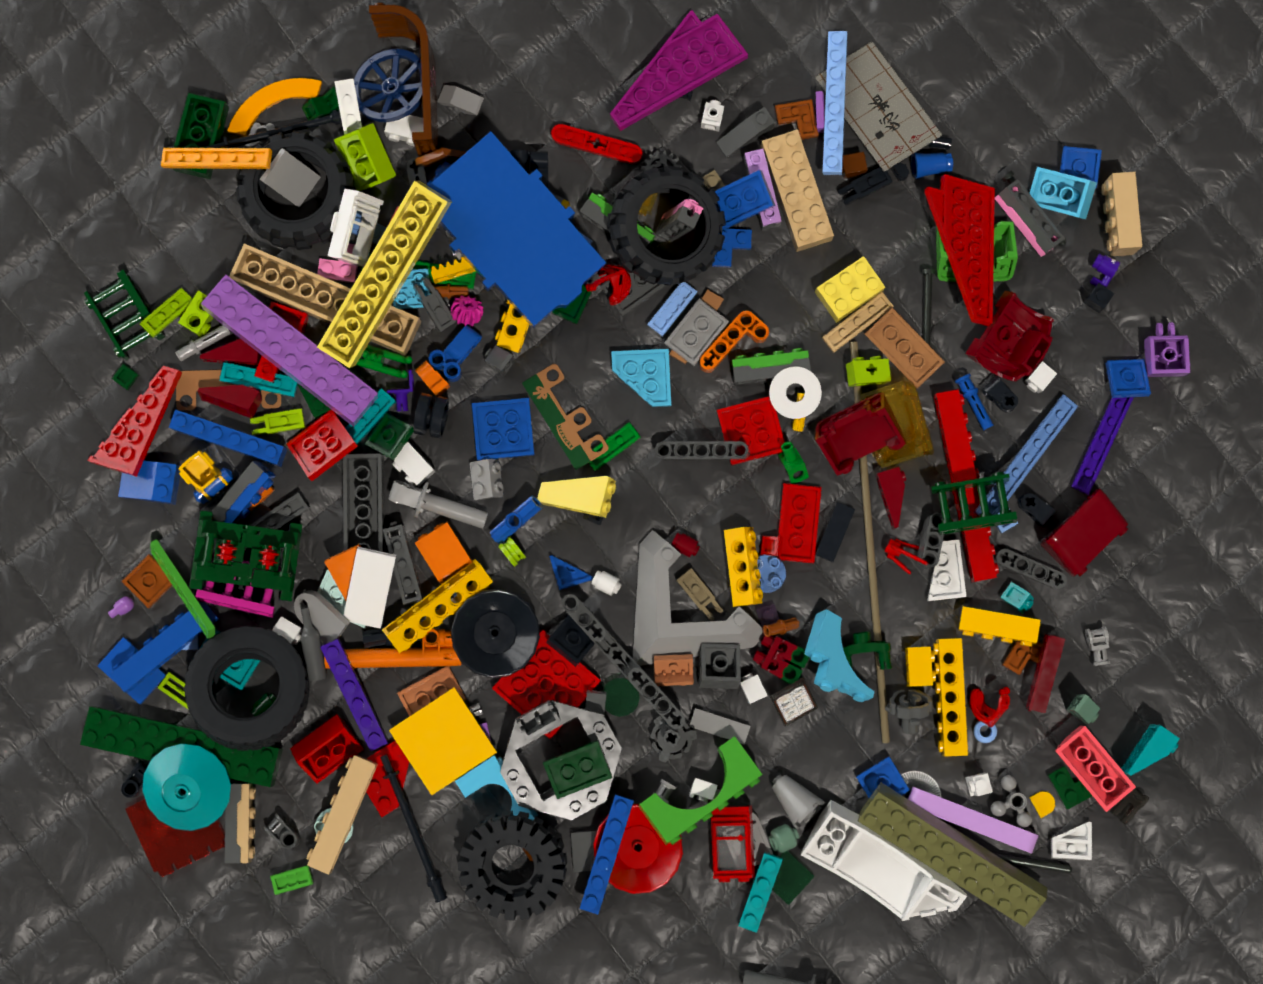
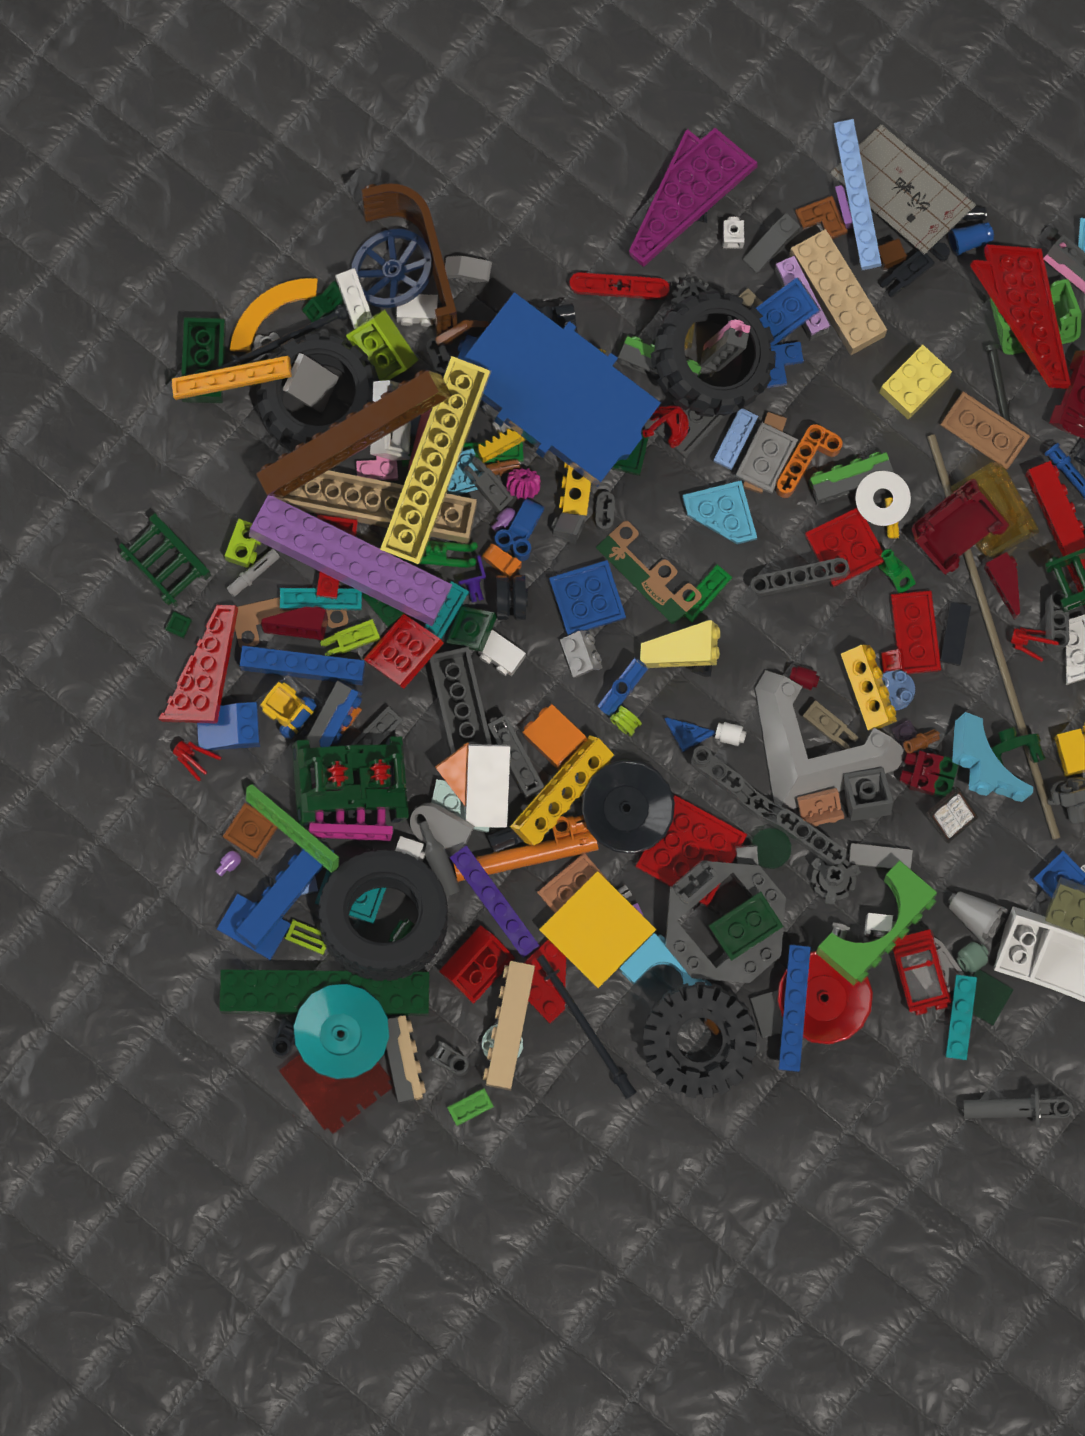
camera: 15 degrees left, 5 degrees down
(104, 497) = (185, 753): none -> red plant
(166, 313) = (210, 548): lime tile -> none
(234, 353) = (292, 575): dark red slope -> none
(311, 234) = (353, 434): none -> reddish brown brick
(423, 500) = (522, 686): light grey piece -> none
(443, 340) = (504, 519): none -> medium lavender cylinder
(533, 349) = (609, 511): none -> dark grey beam
(571, 641) = (707, 799): black plate -> none
(752, 688) = (906, 810): white brick -> none
(857, 322) = (930, 414): tan tile -> none
(859, 376) = (953, 462): lime brick -> none

